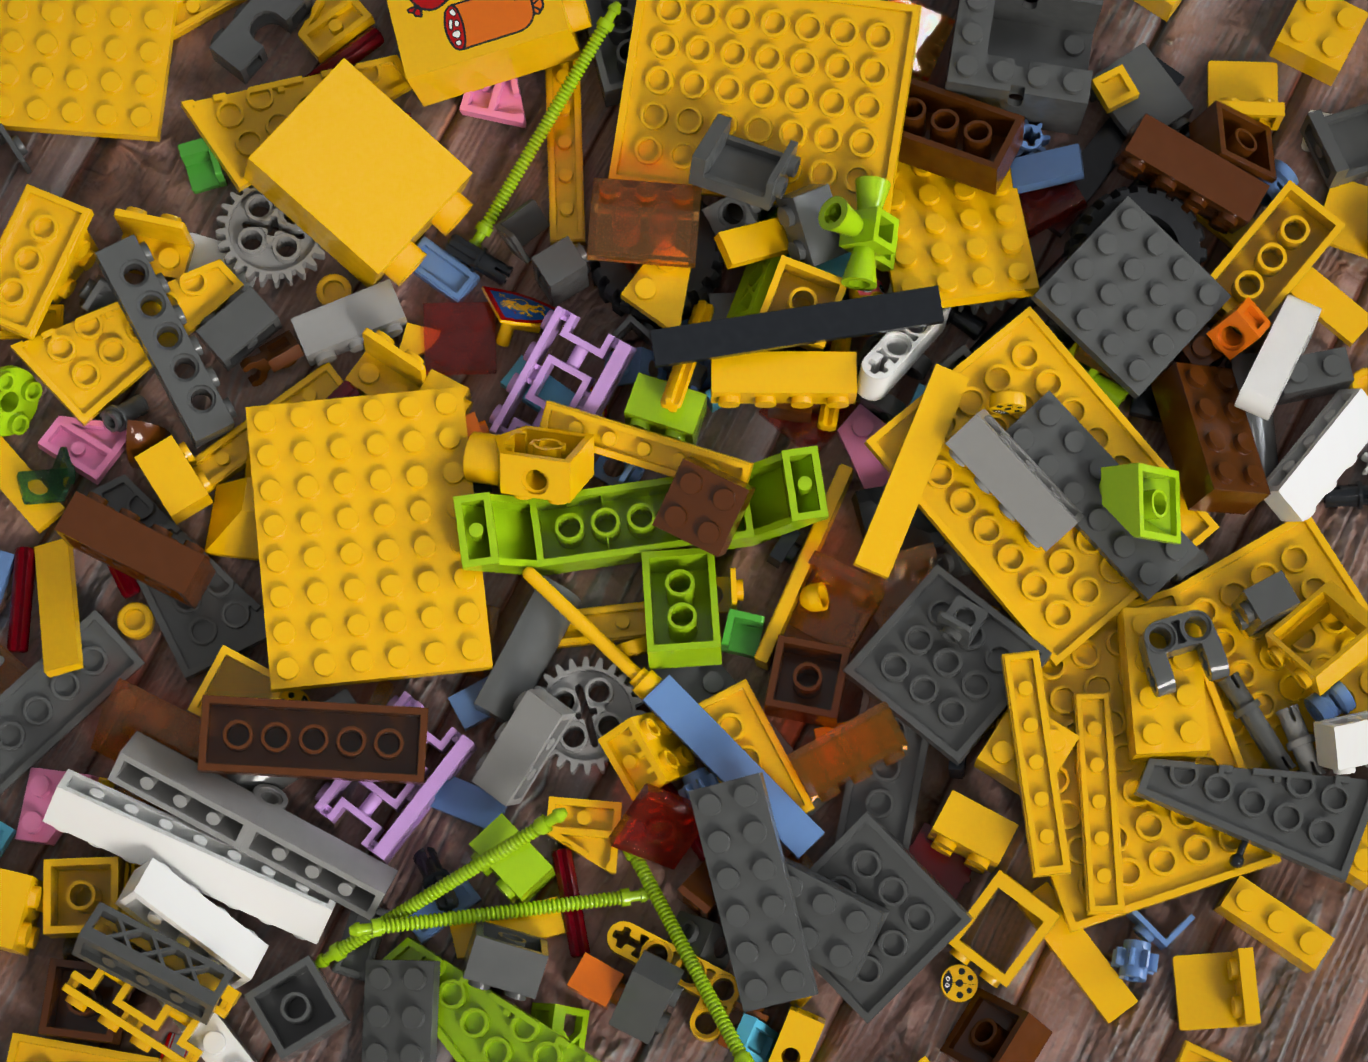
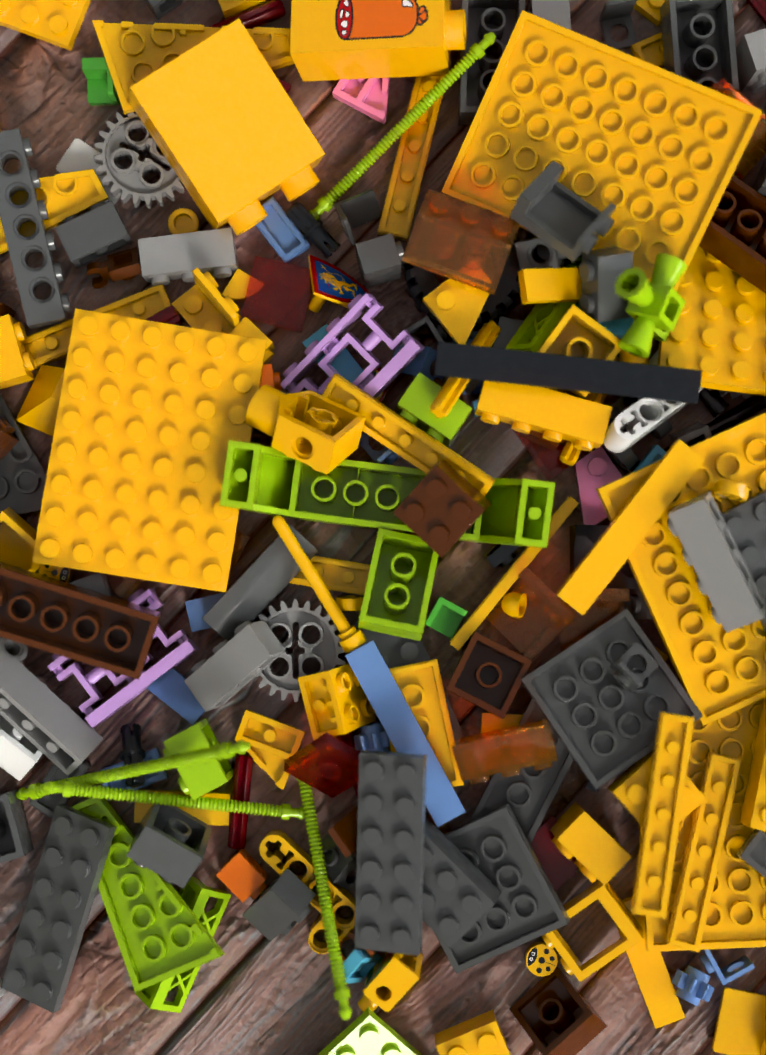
camera: 15 degrees right, 10 degrees up
(165, 237) = (49, 141): yellow bracket -> none
(732, 591) = (447, 577): yellow bracket -> none

